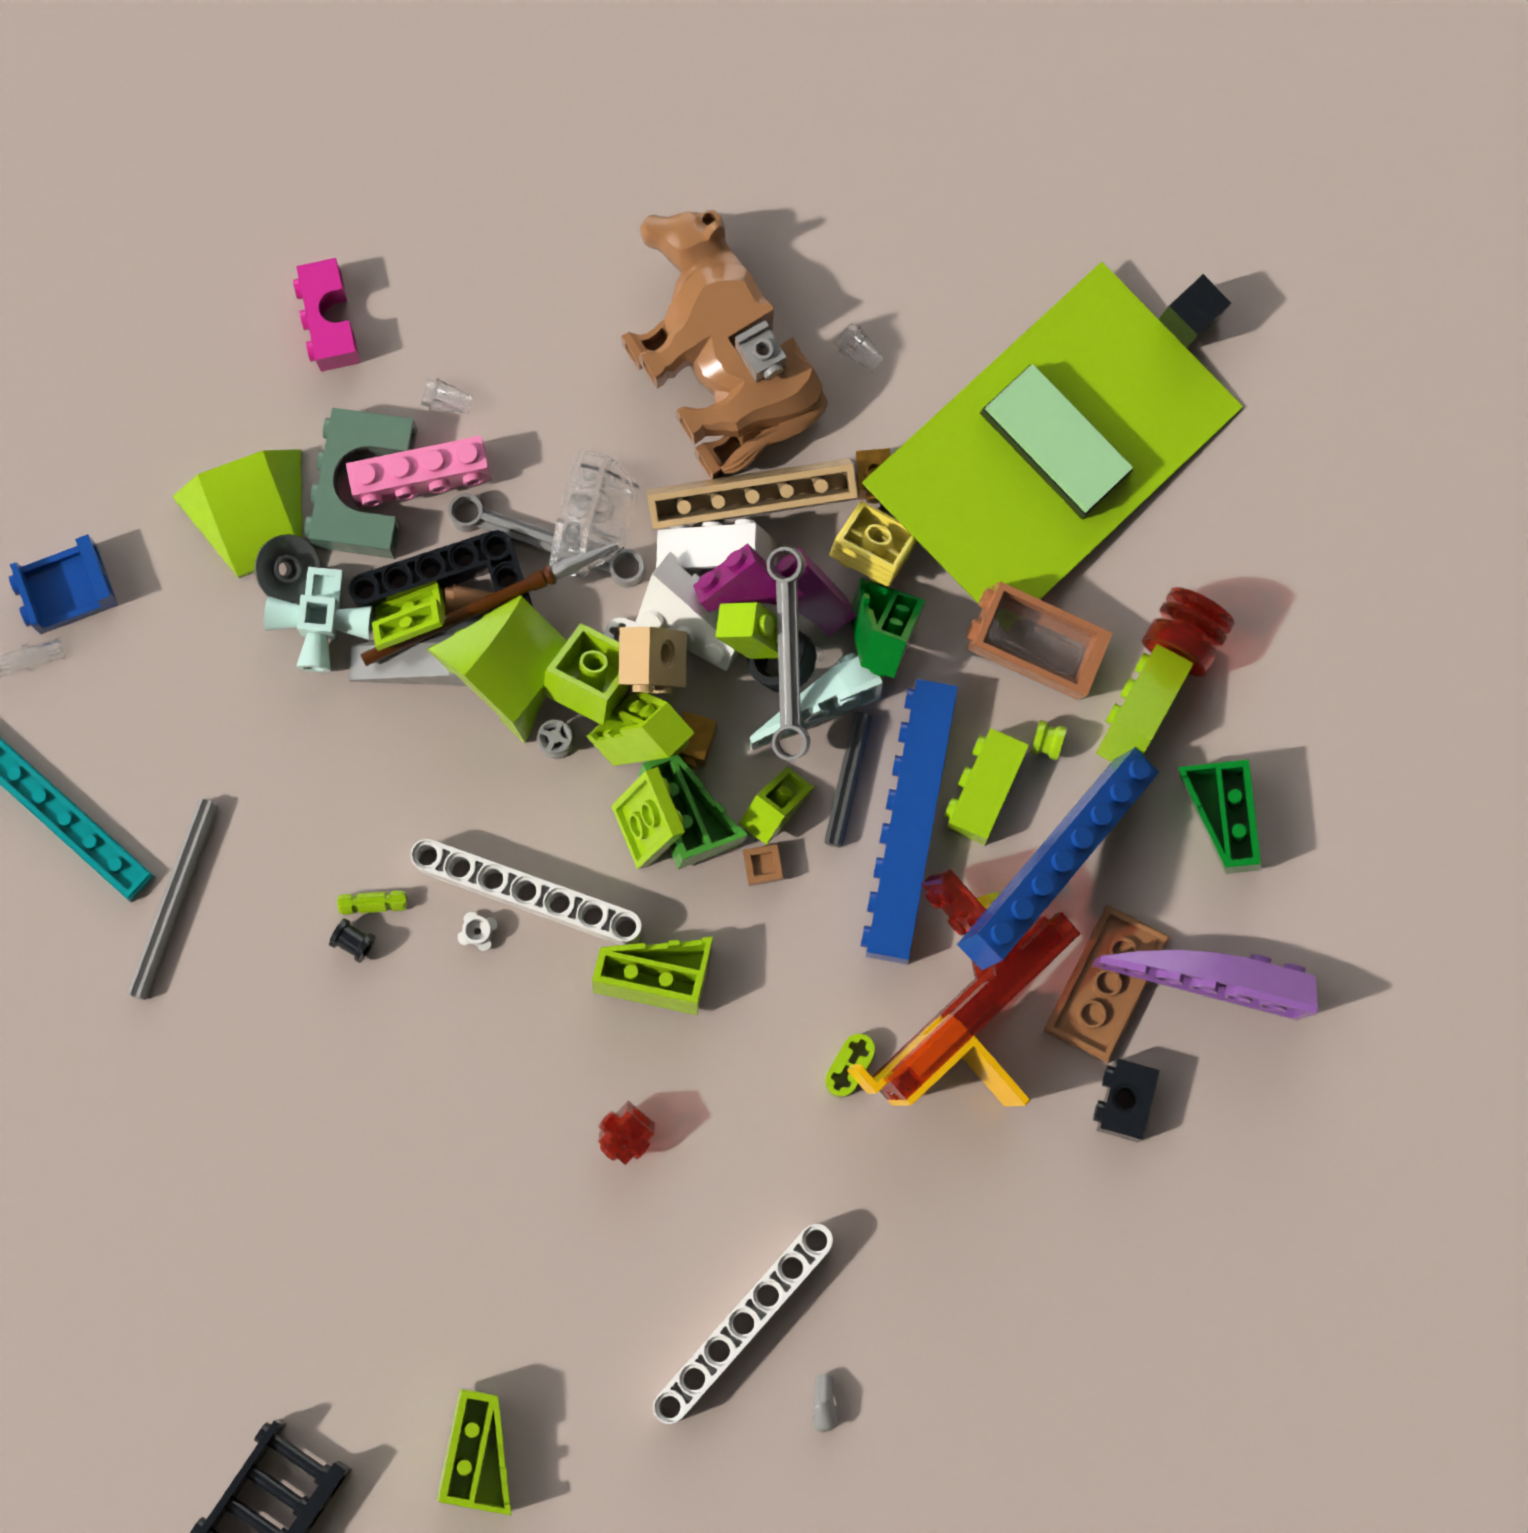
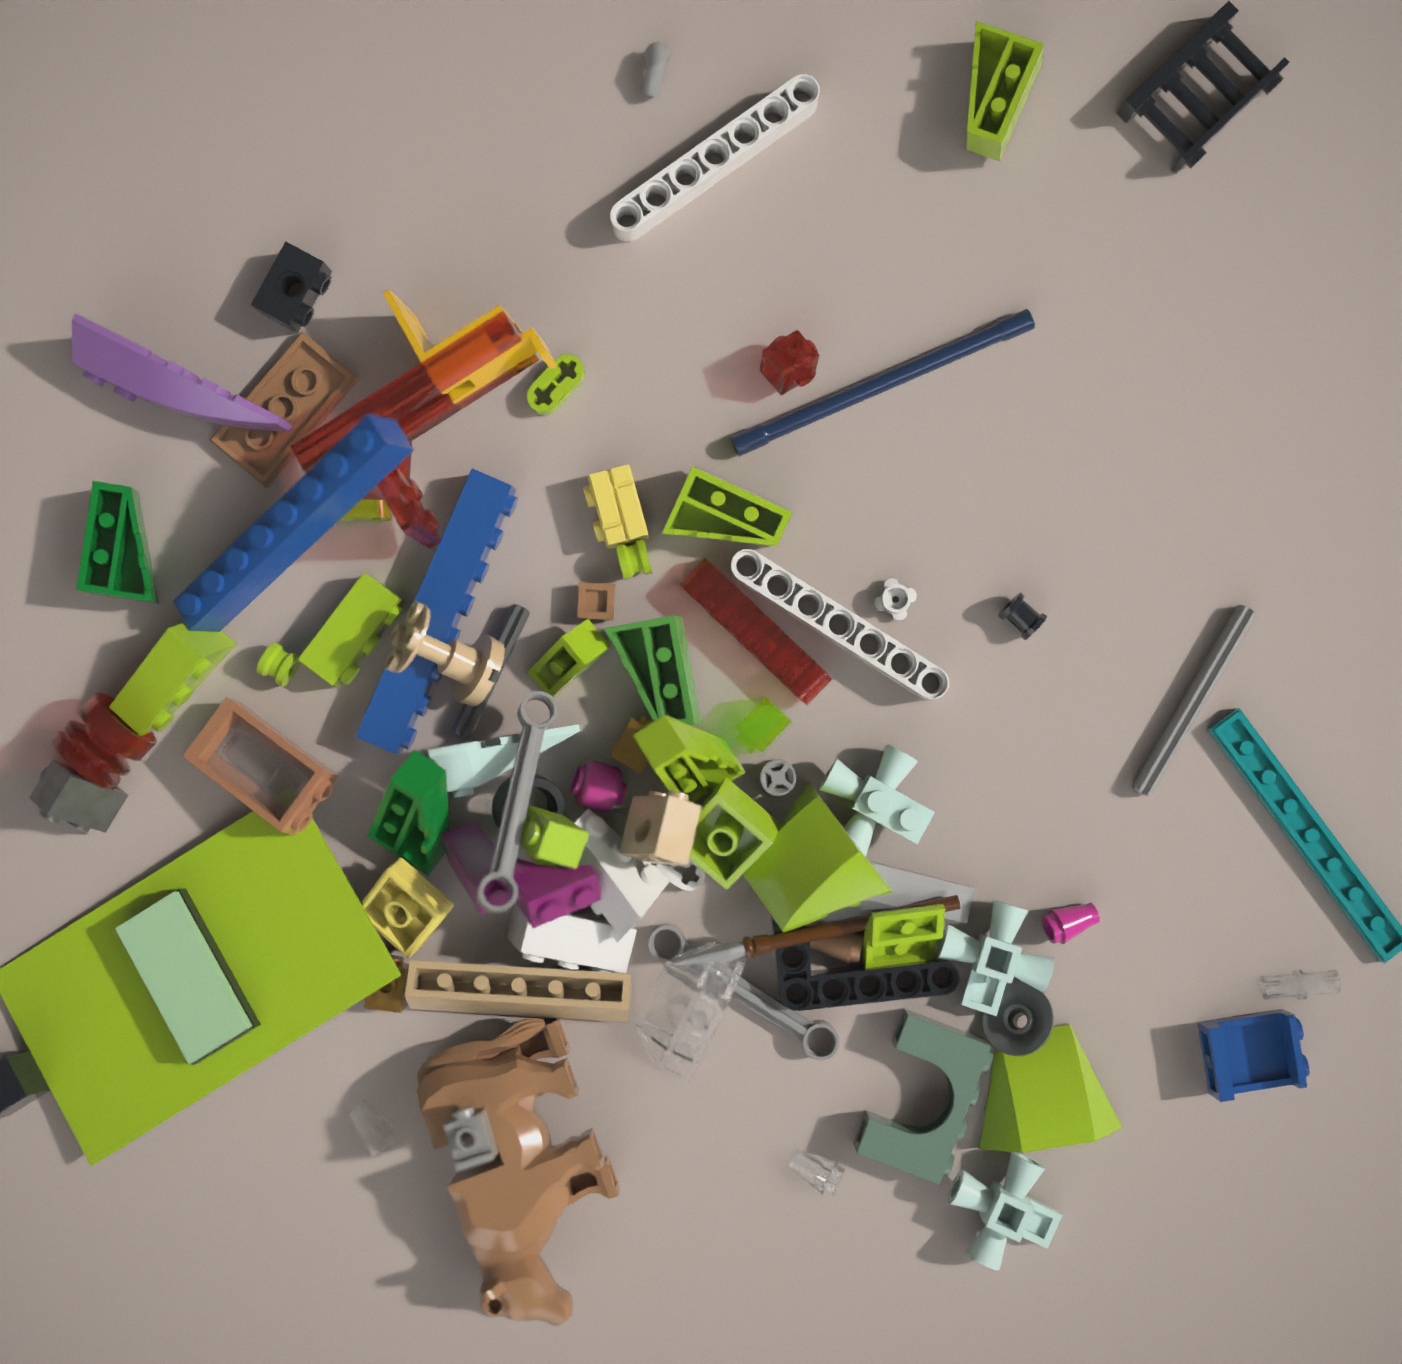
camera: 170 degrees left, 10 degrees up
(255, 666) = (1068, 922): none -> dark pink cone
(267, 400) = (1005, 1210): none -> light aqua brick
(320, 287) = (927, 1325): dark pink arch -> none
(372, 902) = (995, 652): lime axle -> none
(418, 472) = (861, 1094): bright pink brick -> none
(425, 1215) = (1001, 331): none -> dark blue piece
(456, 737) = (878, 800): none -> light aqua brick
(580, 782) = (761, 726): none -> clear neon green brick
(605, 869) = (755, 631): none -> clear red beam
(648, 818) = (699, 665): lime plate -> none
(721, 693) = (598, 786): none -> dark pink head
(735, 912) = (633, 559): none -> lime wheel
(762, 957) = (617, 507): none -> light yellow brick
(867, 773) = (456, 660): none -> tan piece
(1204, 572) = (73, 798): none -> flat silver brick

